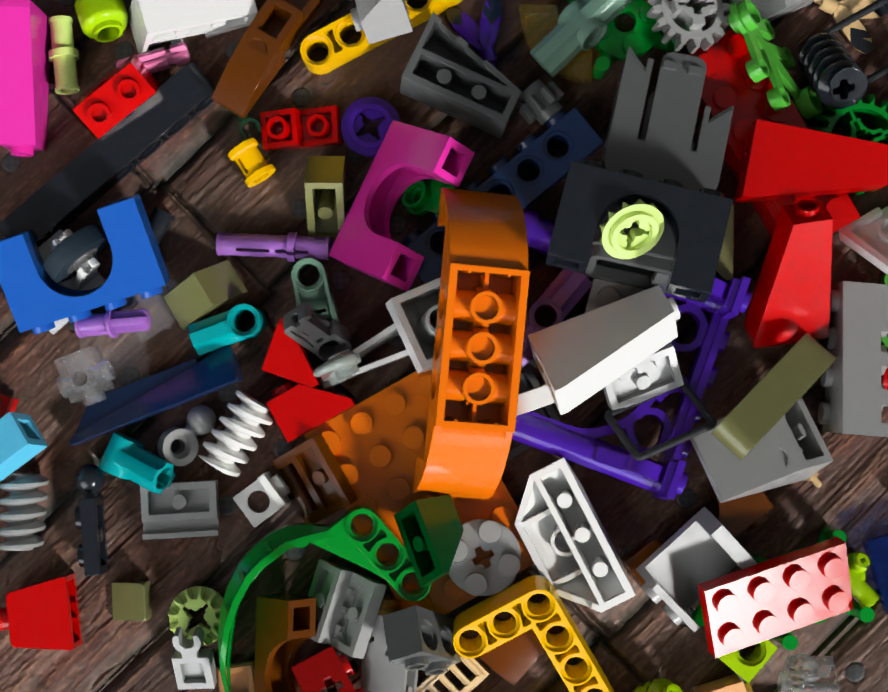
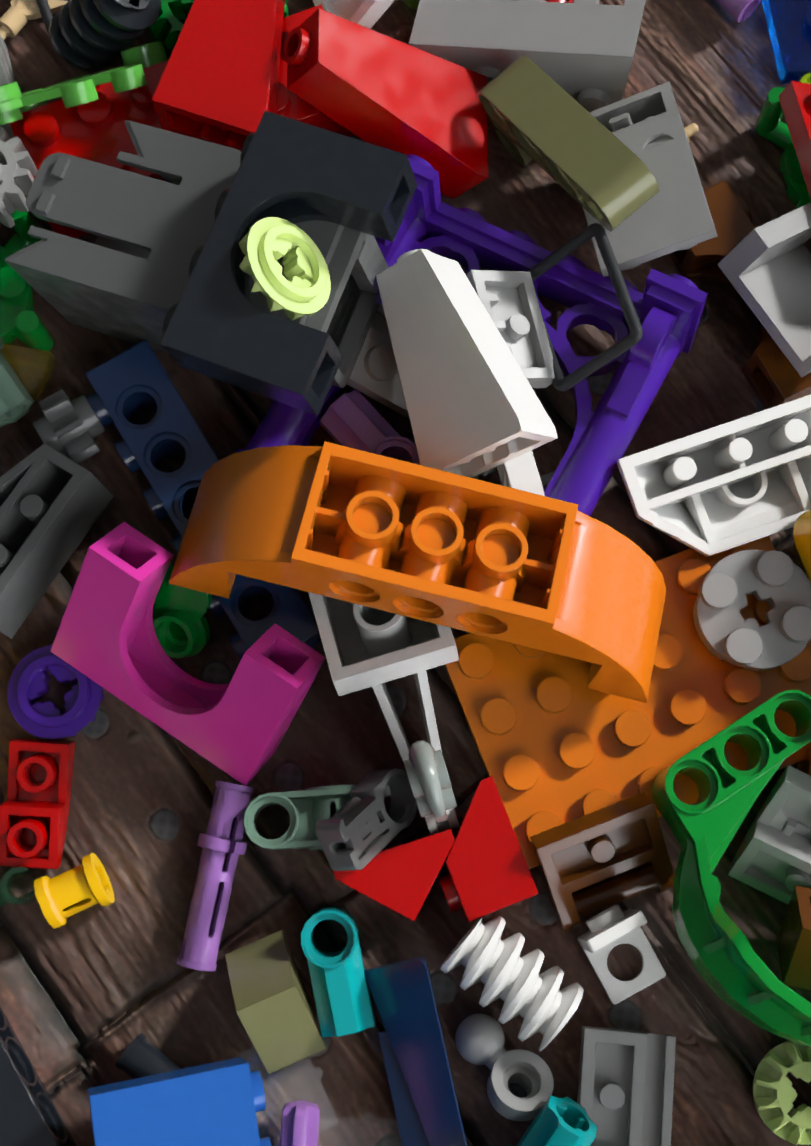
camera: 80 degrees left, 10 degrees down
(325, 195) = (150, 775): olive slope -> none
(430, 535) = (724, 678): dark green slope -> none

